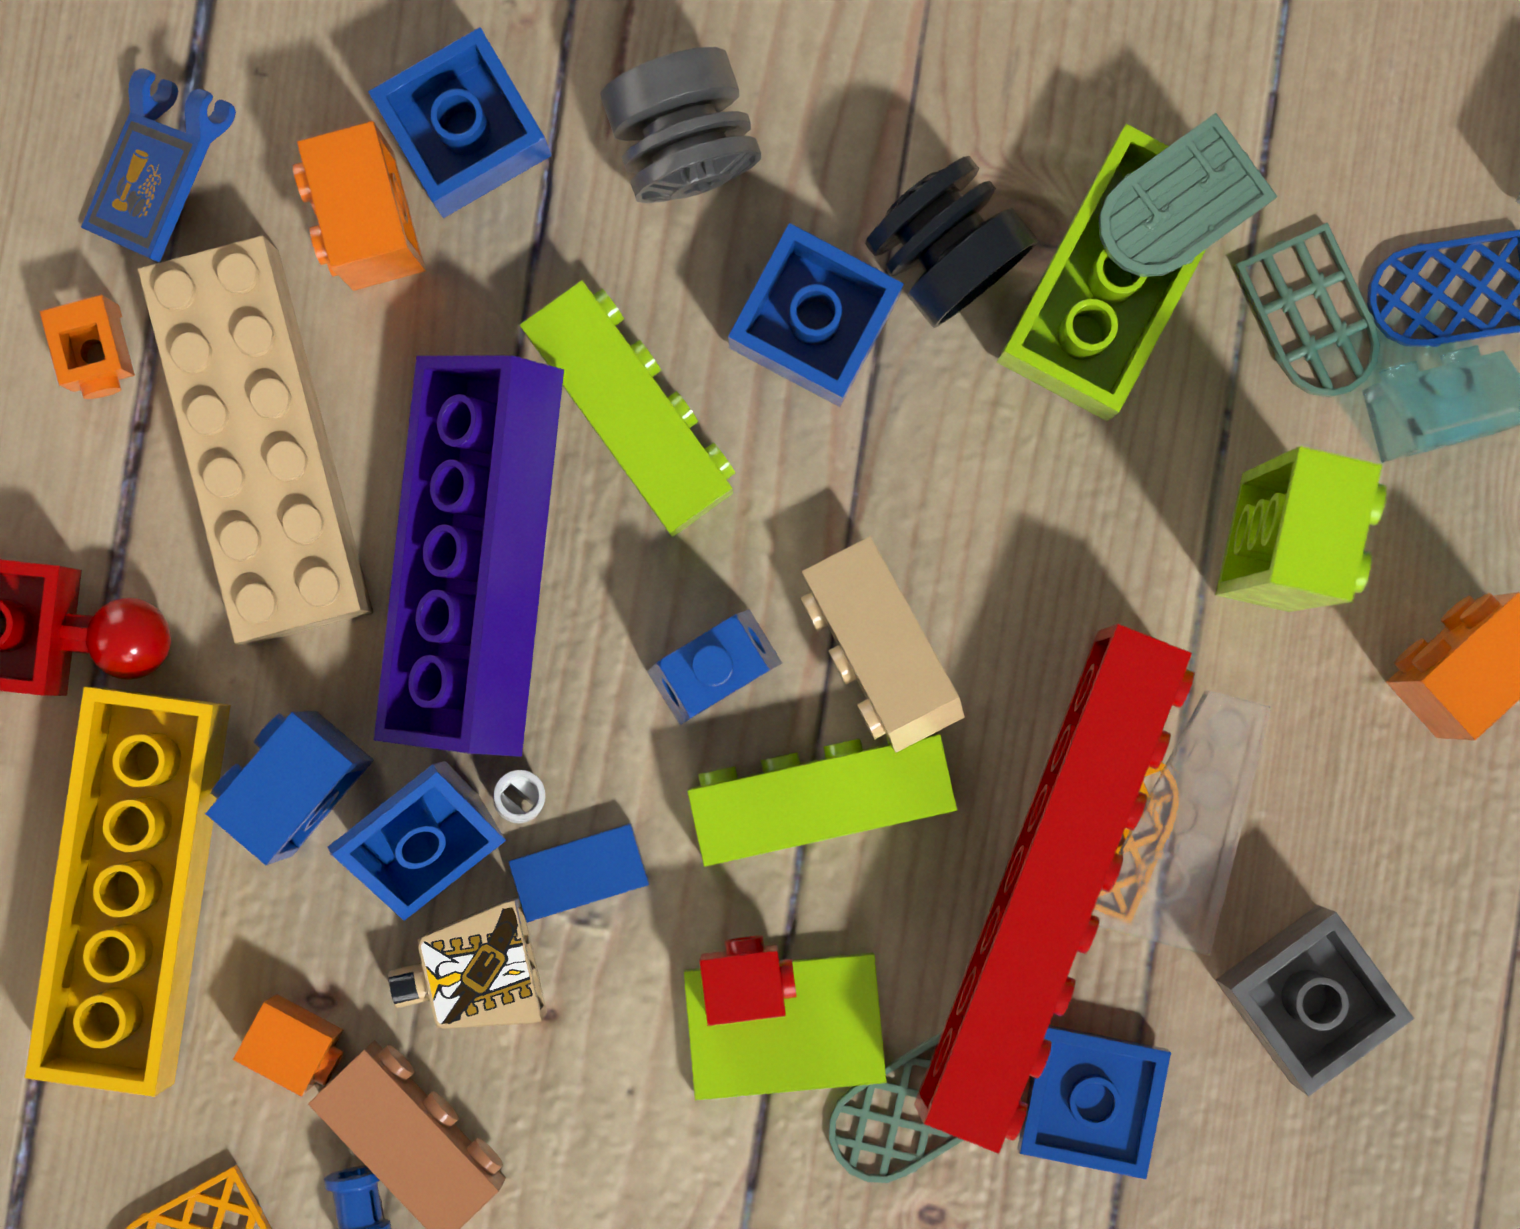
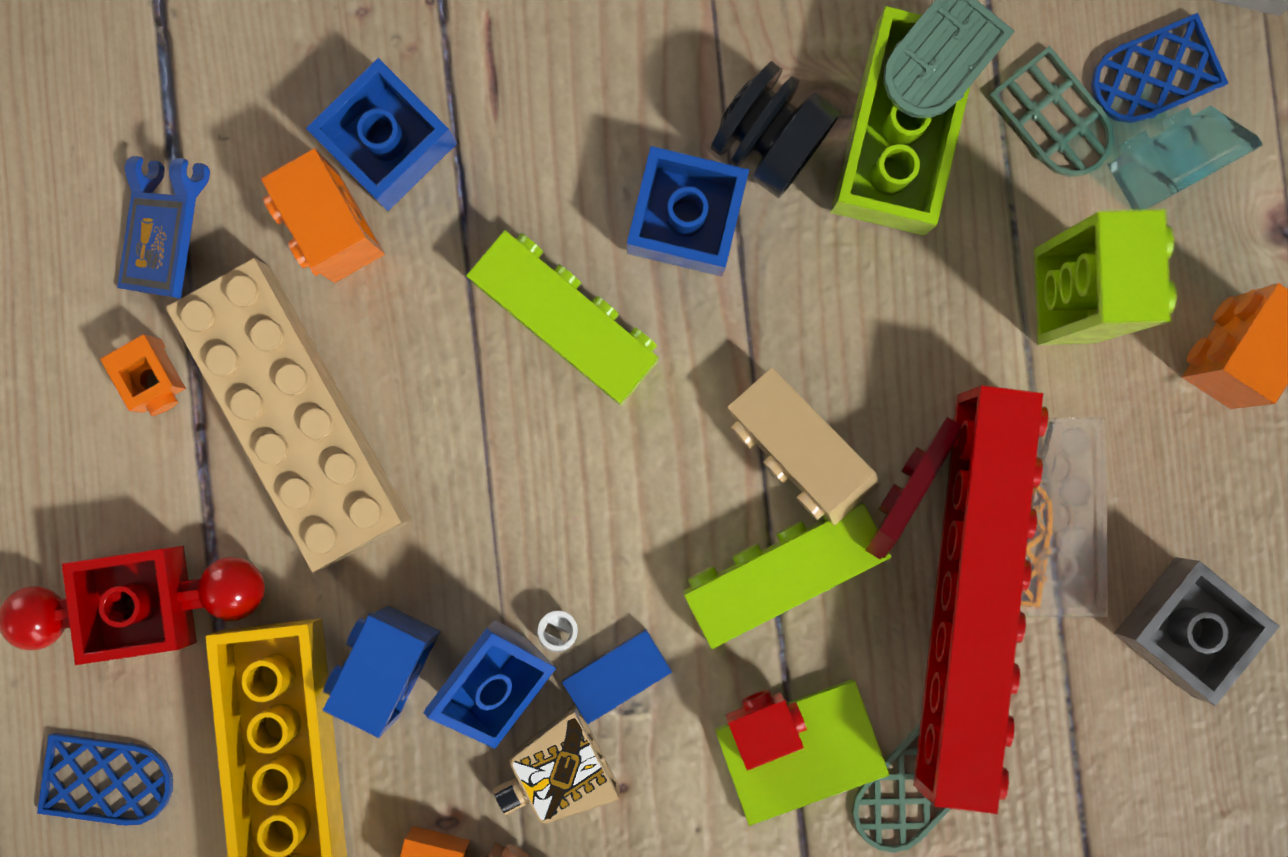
camera: 15 degrees left, 0 degrees up
(469, 554) = (473, 459): dark purple brick -> none
(678, 117) = (548, 93): flat silver wheel -> none
(714, 666) = (679, 496): blue torso -> none
(986, 745) = (902, 502): none -> dark red plate
(1095, 1103) = (1054, 749): blue plate -> none

